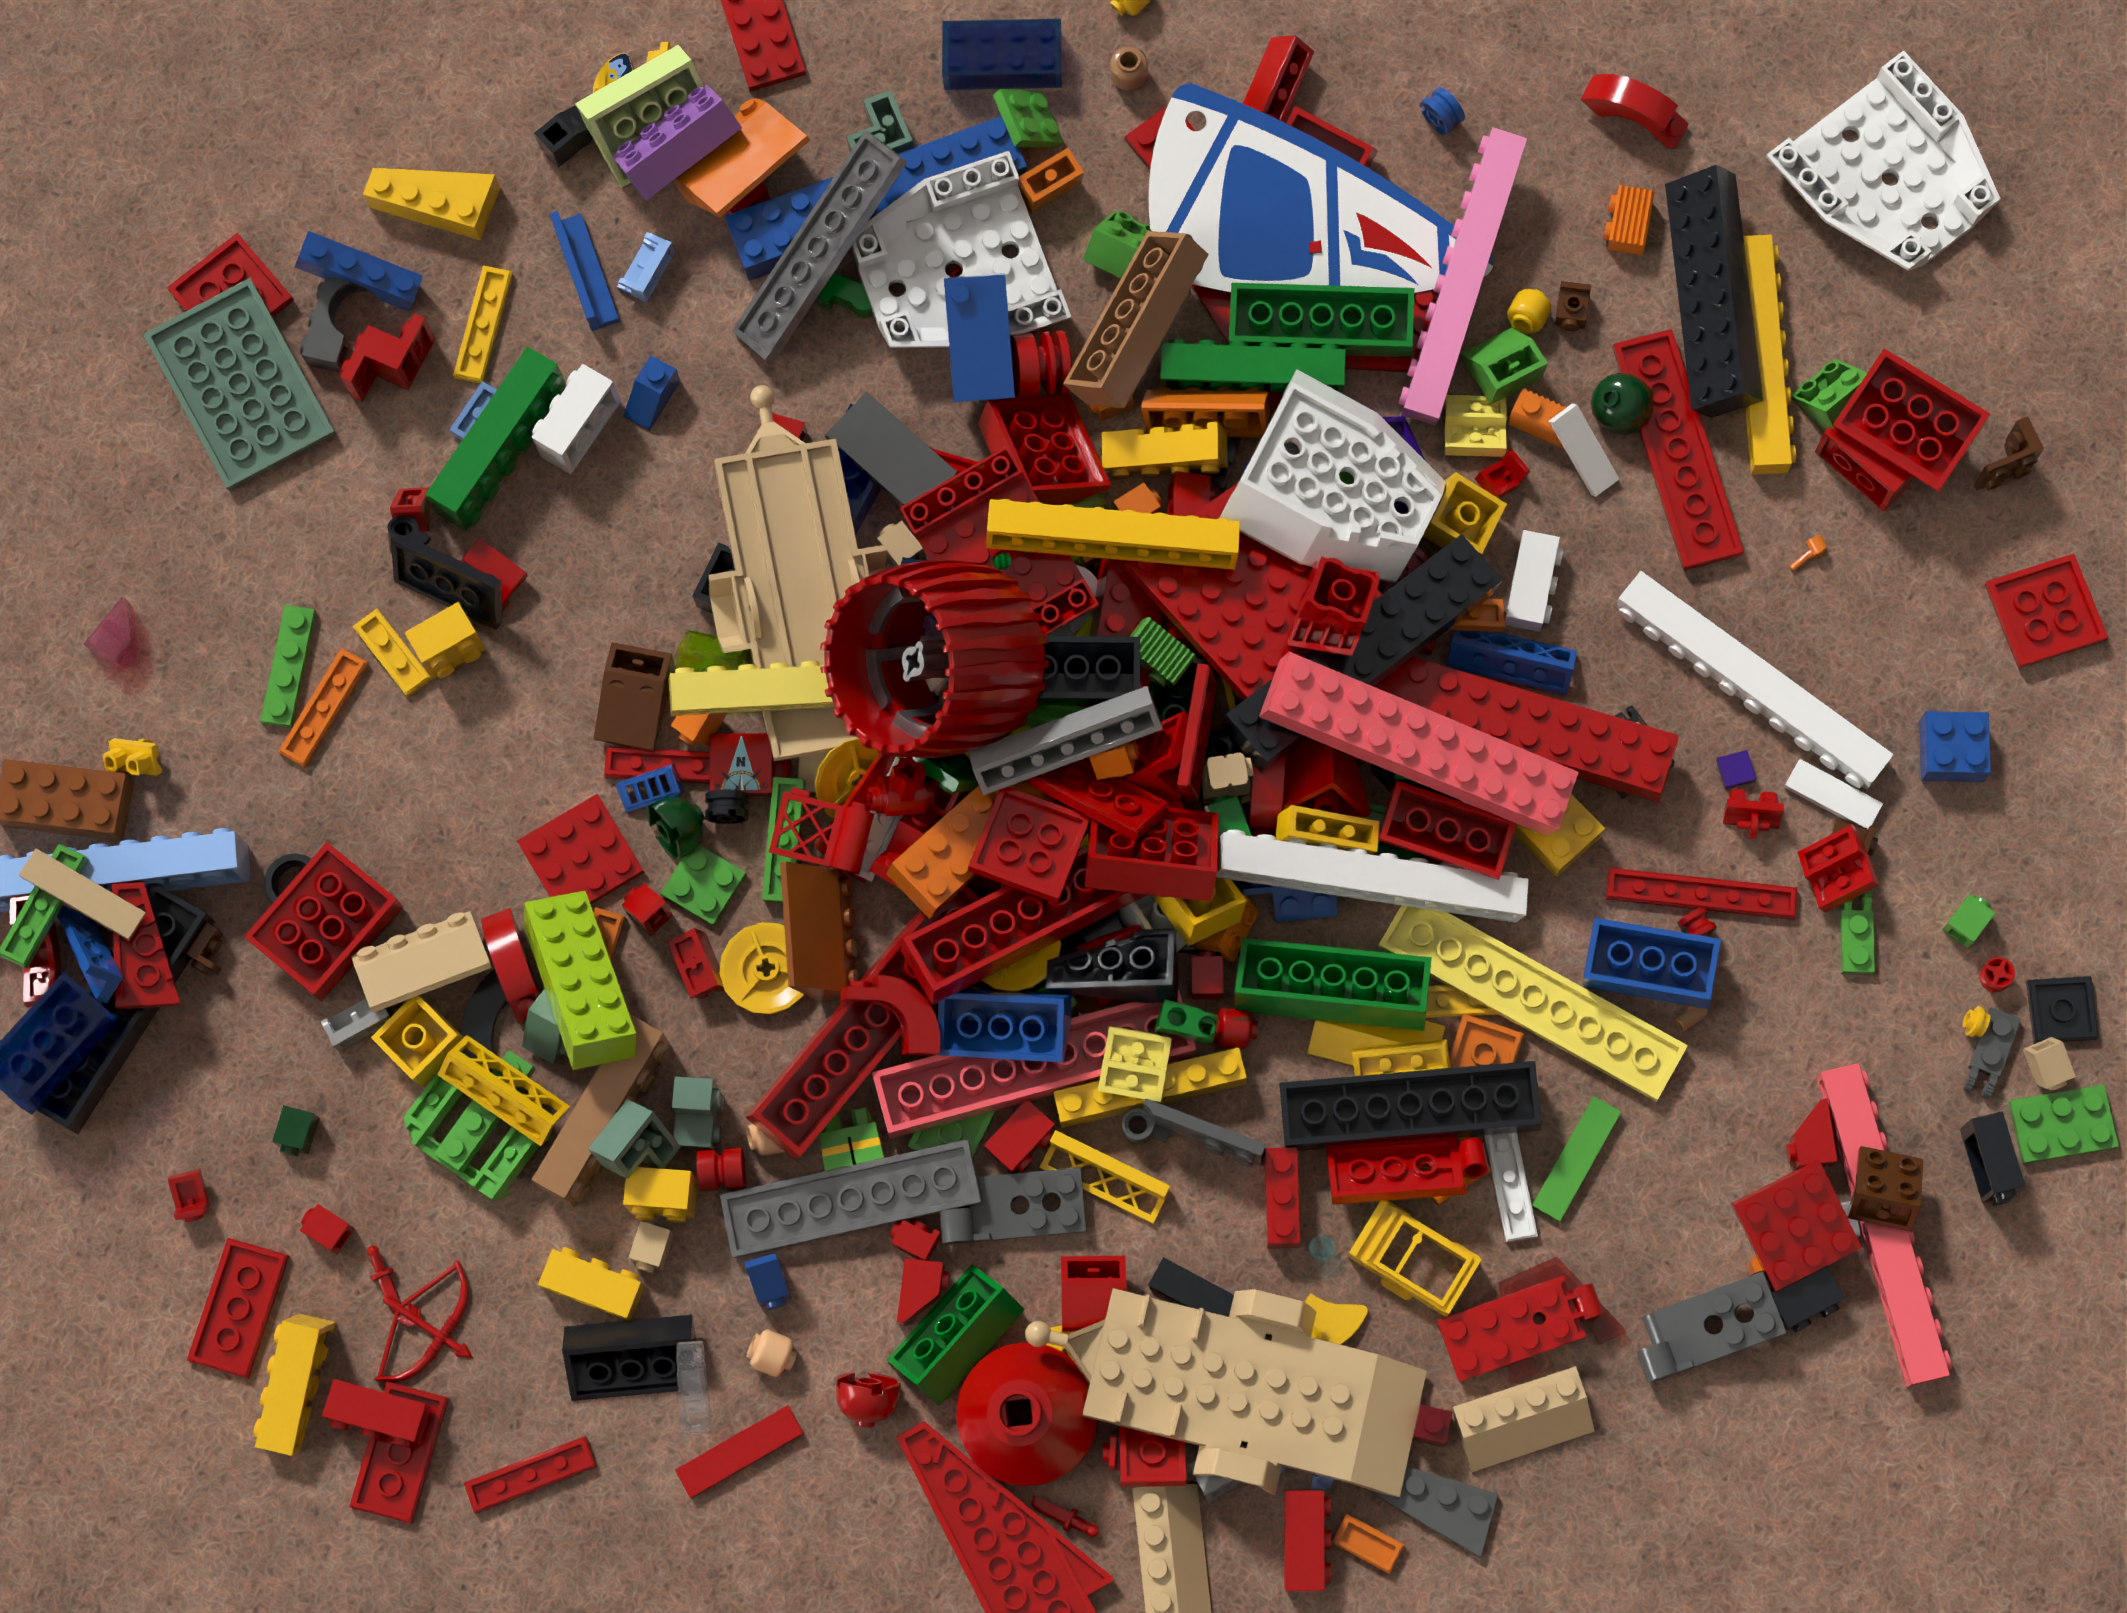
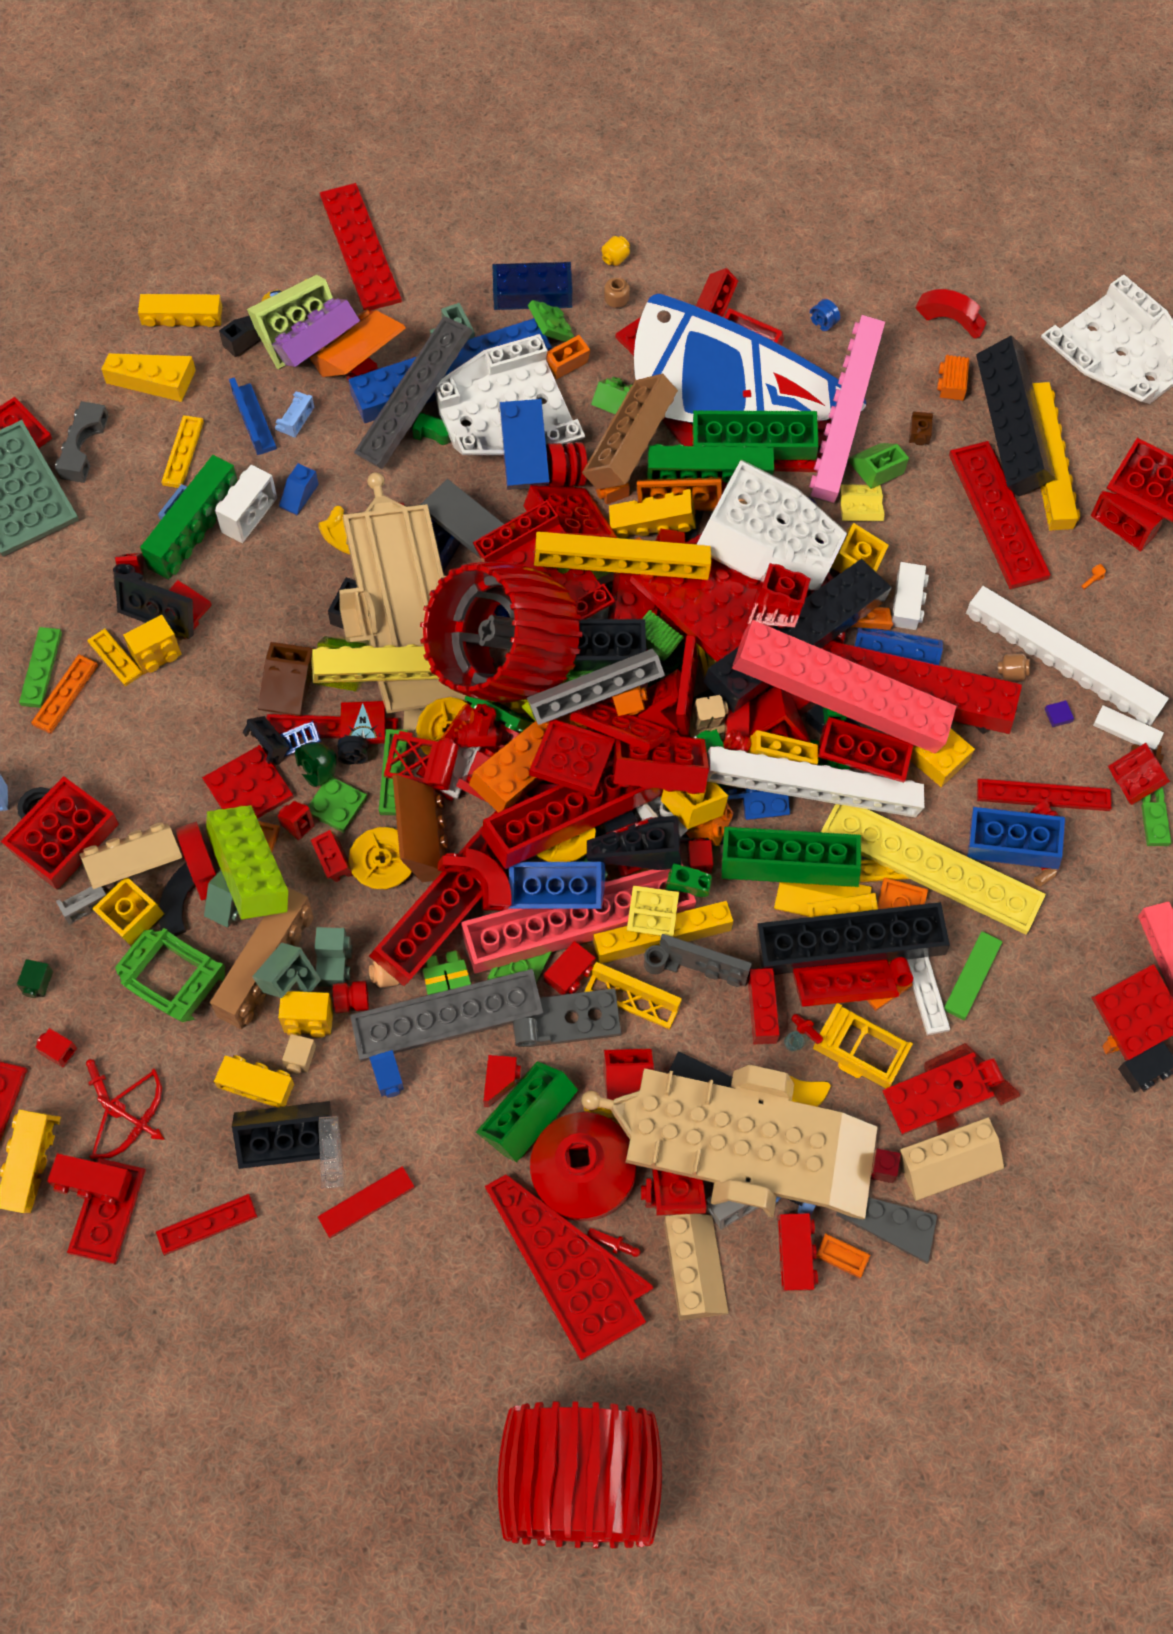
camera: 10 degrees left, 10 degrees down
(335, 260) = (75, 405): blue arch -> none
(387, 357) = (115, 468): red bracket -> none
(475, 1124) = (175, 960): bright green plate -> none
(476, 89) = (180, 310): none -> yellow brick
(499, 1093) = (187, 942): yellow fence -> none
(608, 786) = (268, 738): none -> black hinge
(697, 727) = (331, 695): orange brick -> none
(702, 451) = (334, 531): none -> yellow arm
(771, 1353) = (389, 1128): light nougat head -> none
(867, 1398) = (462, 1158): red cylinder -> none
(914, 1239) = (494, 1042): red brick -> none
(1235, 1028) = (722, 890): red head -> none
(1264, 818) = (735, 741): none -> red wheel
(1338, 1230) = (807, 1028): none -> red piece
(1504, 475) = (886, 529): red bracket -> none
(1529, 311) = (892, 431): yellow head -> none
(1533, 416) = (907, 495): orange brick -> none
(1584, 450) = (937, 512): white tile -> none
(1622, 403) = (959, 485): dark green cylinder -> none
(1677, 698) = (1014, 667): none -> medium nougat head
(1681, 1334) = (1063, 1101): dark grey hinge -> none
(1753, 814) = (1075, 740): red hips -> none
(1813, 1139) = (1141, 953): red slope -> none
(1828, 392) = (1096, 478): bright green slope -> none

